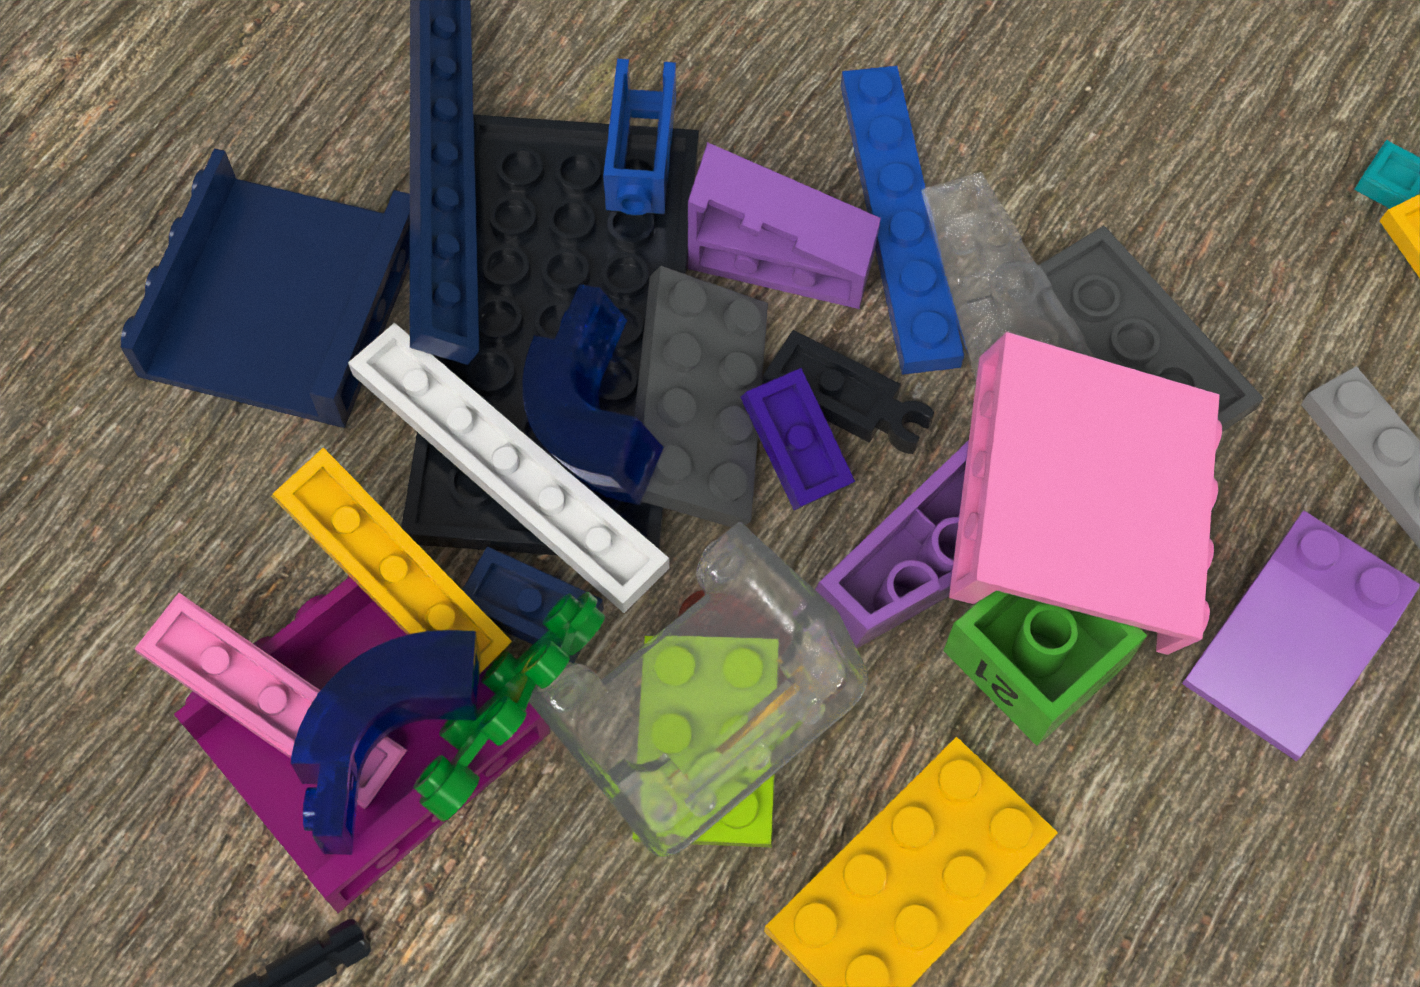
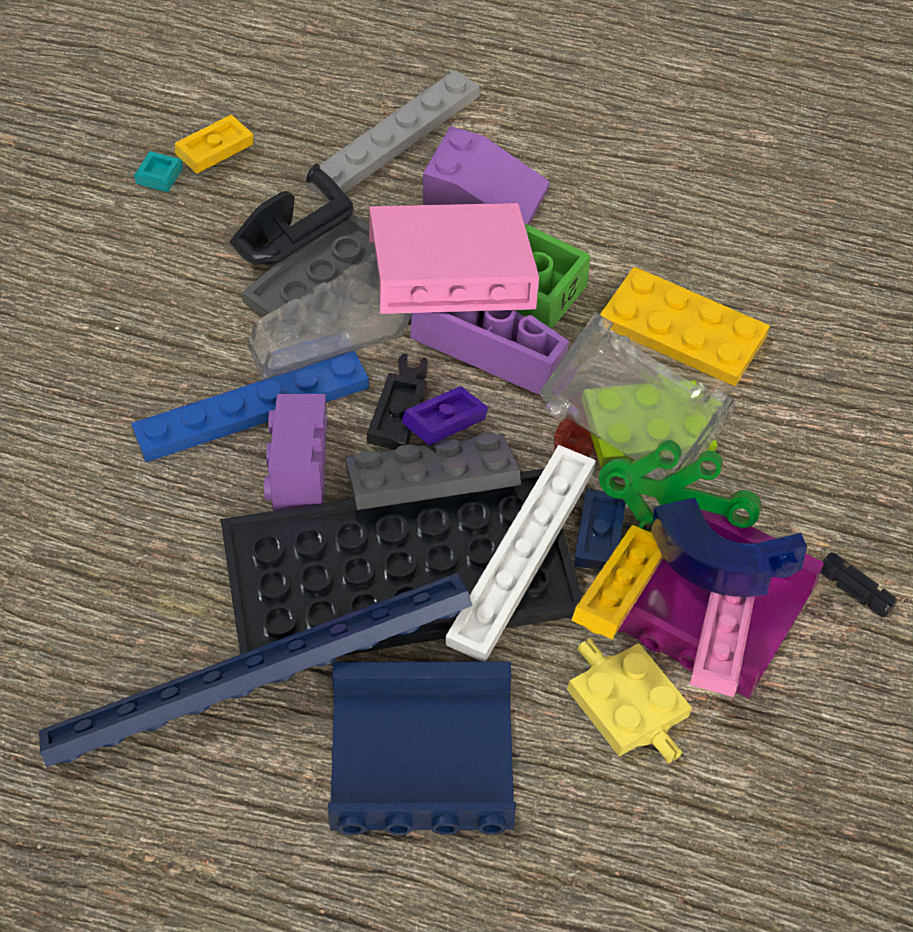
camera: 105 degrees left, 10 degrees down
(238, 560) = (629, 699): none -> light yellow plate
(562, 403) = (464, 527): clear blue arch -> none
(638, 190) = (249, 534): blue window -> none
(1237, 279) = (273, 218): none -> black piece

